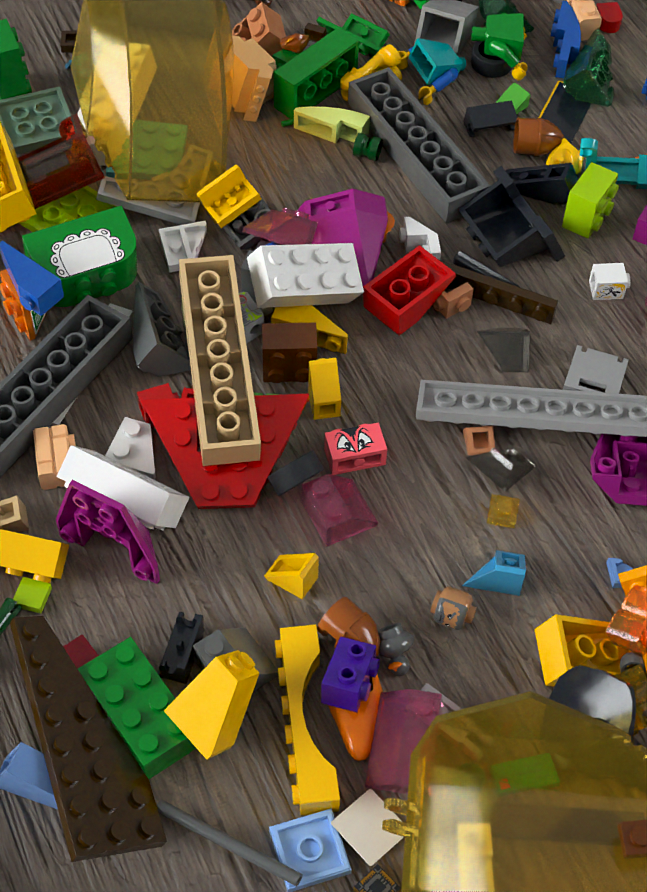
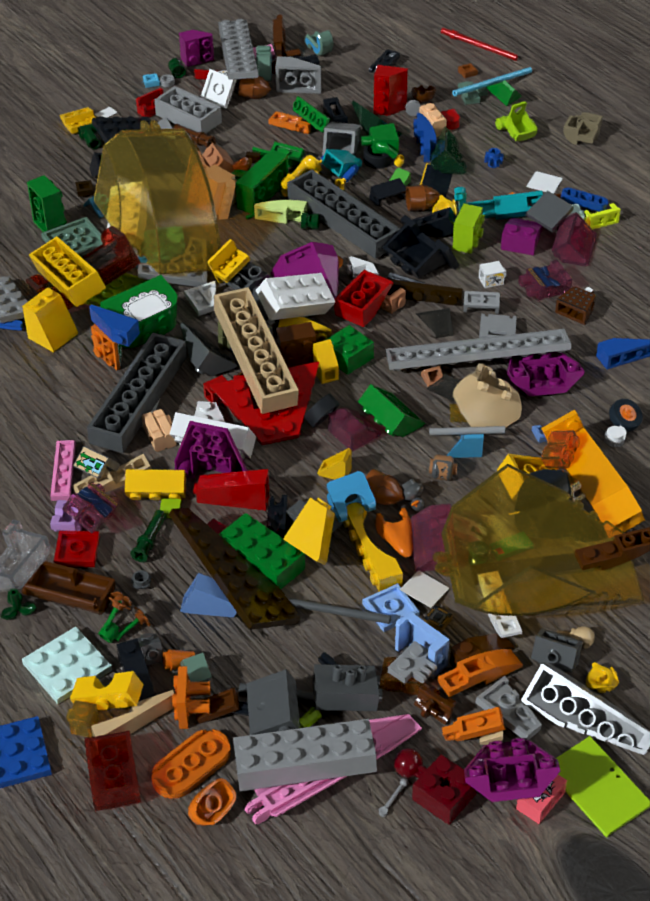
camera: 10 degrees left, 10 degrees down
(131, 586) = (234, 489): none -> red slope
(283, 227) = (270, 270): clear pink slope -> none
(288, 633) = (349, 490): none -> dark azure piece
(349, 674) = (390, 508): dark purple brick -> none
(355, 448) = (351, 391): coral brick -> none
(367, 371) = (351, 349): none -> green brick
(399, 491) = (389, 411): none -> green slope
(507, 547) = (467, 430): none -> light grey bar
(548, 502) = (487, 399): none -> tan animal
(582, 325) = (481, 300): none -> light grey hinge

